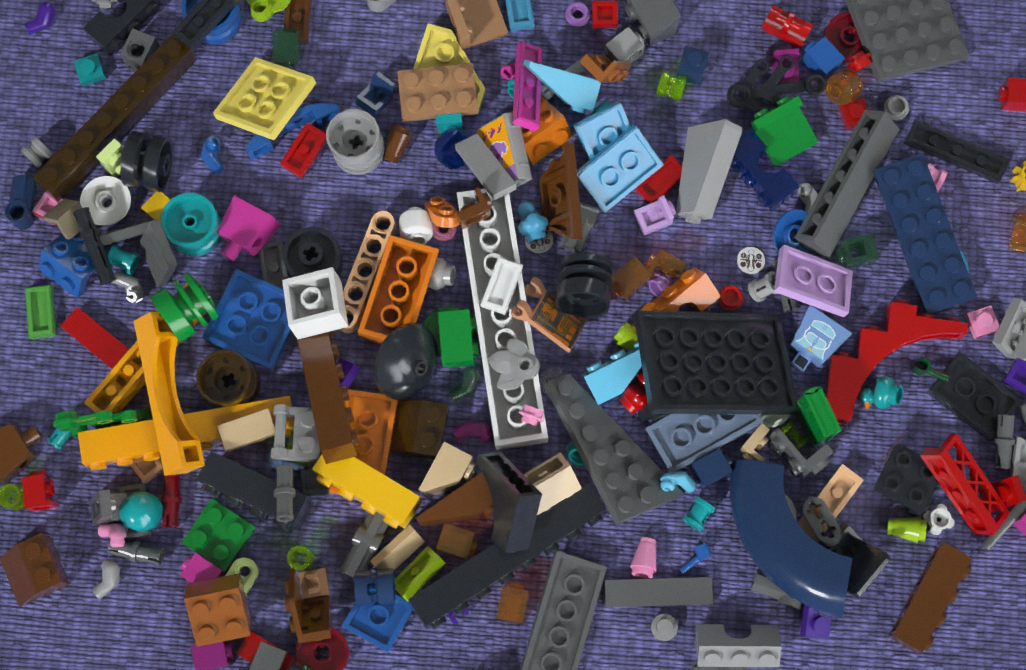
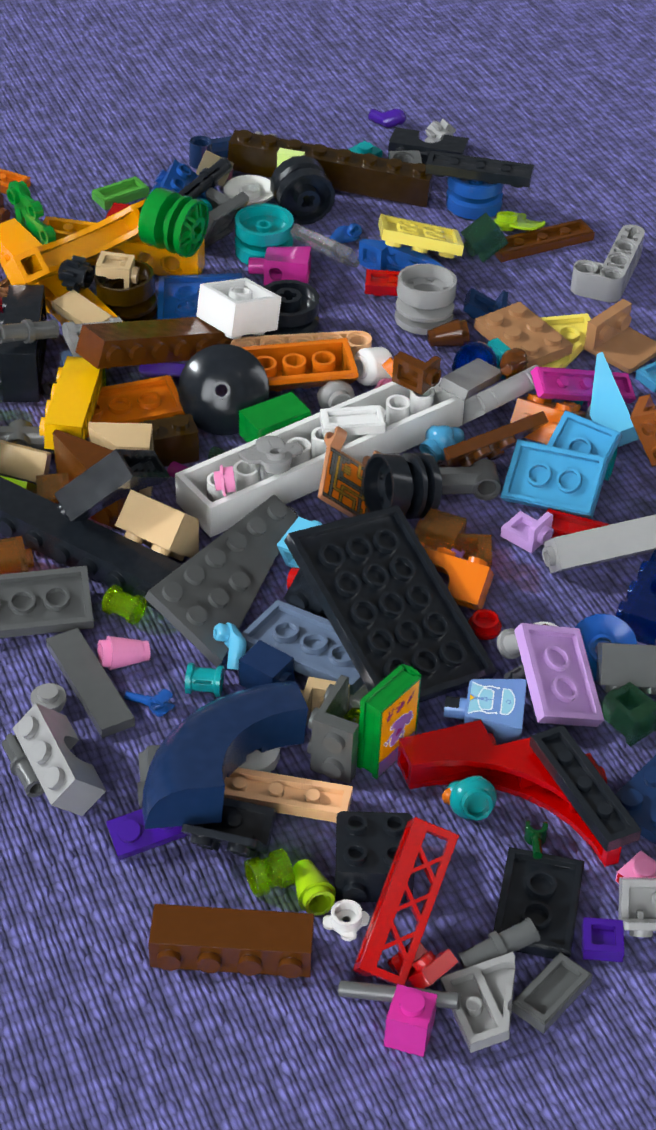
camera: 60 degrees right, 35 degrees down
(204, 416) = (76, 273): none -> black gear
(217, 380) = (118, 265): none -> tan bracket
(235, 183) = (325, 245): none -> clear slope
(475, 122) = (513, 362): none -> reddish brown animal
(597, 537) = (124, 604): none -> clear neon green bush
(827, 518) = (262, 779): dark grey beam -> none
(889, 543) = (269, 872): none -> clear neon green wheel
(927, 326) = (585, 788): none -> black plate

